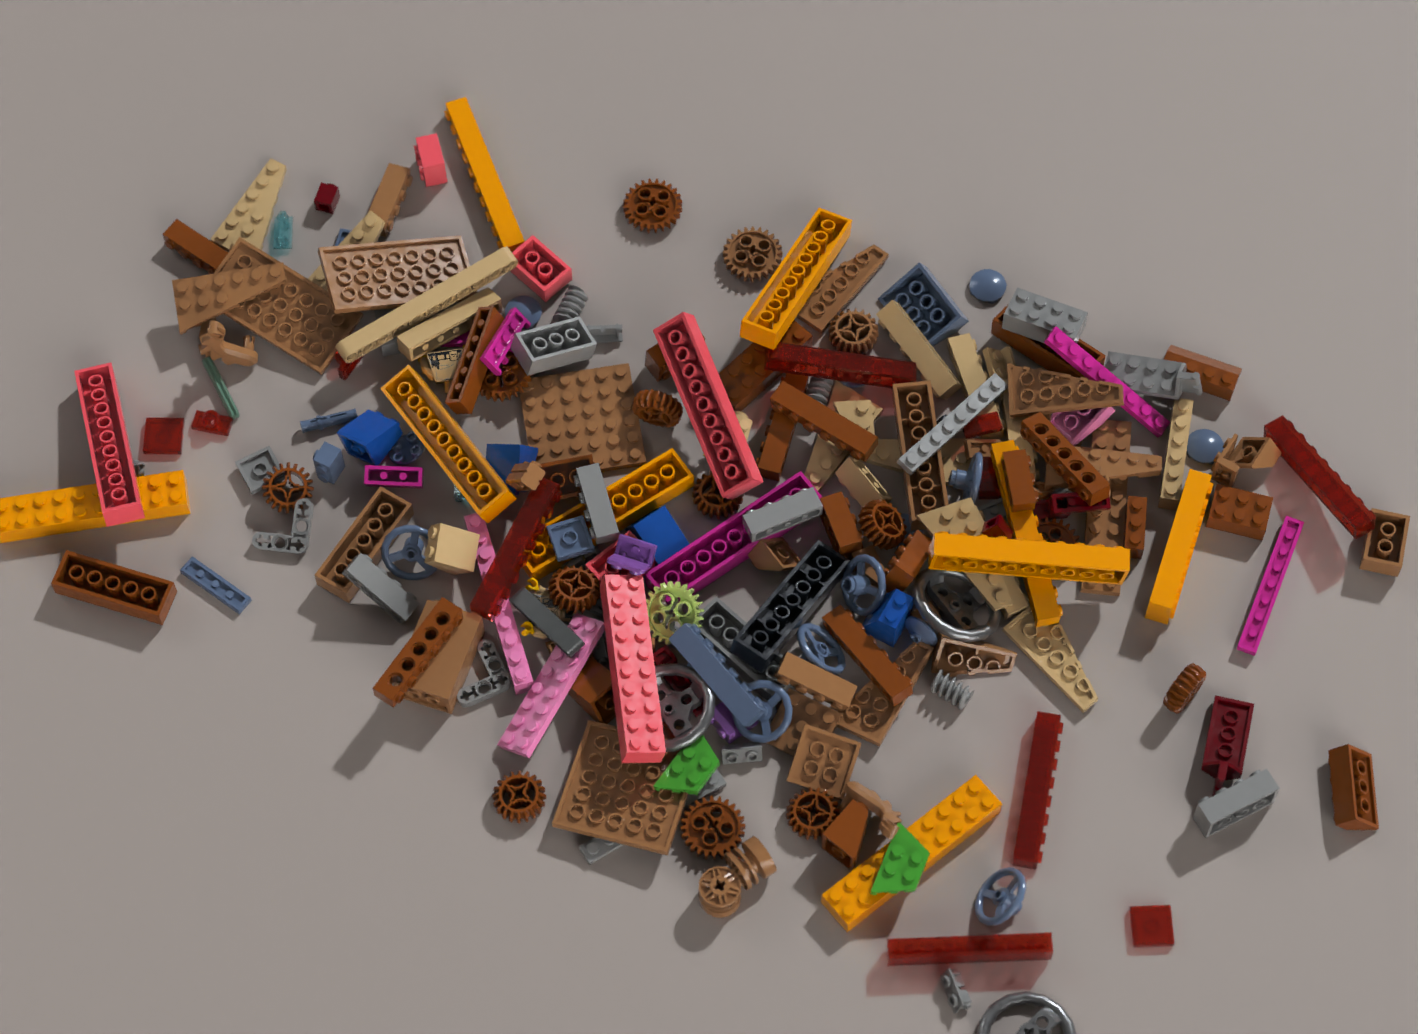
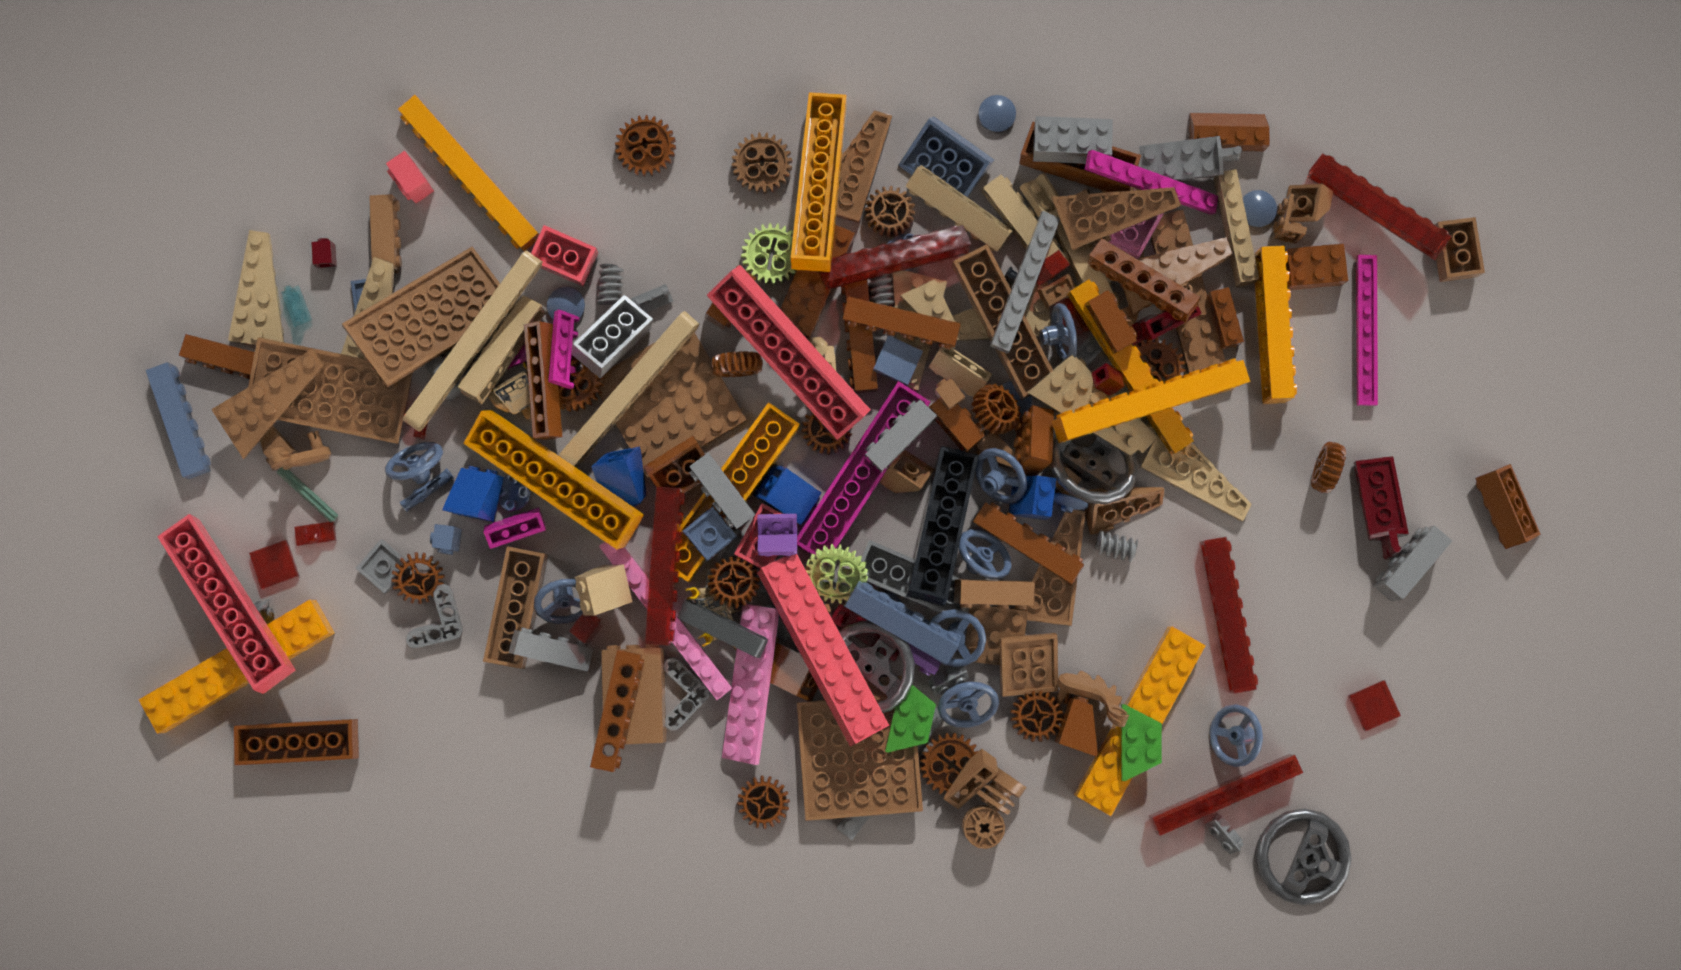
camera: 25 degrees left, 20 degrees up
(136, 288) = (178, 420): none -> sand blue brick
(215, 585) = (391, 698): sand blue tile -> none
(328, 393) = (417, 465): none -> sand blue piece
(421, 582) = (586, 628): none -> clear red brick
(525, 476) = (644, 492): medium nougat brick -> none
(550, 394) = (629, 389): none -> tan beam
(715, 324) = (755, 251): none -> yellowish green gear
(725, 841) = (972, 778): none -> medium nougat slope
(750, 774) = (967, 702): none -> sand blue piece
(807, 455) = (897, 360): none -> sand blue tile
(842, 490) = (949, 393): none -> medium nougat brick

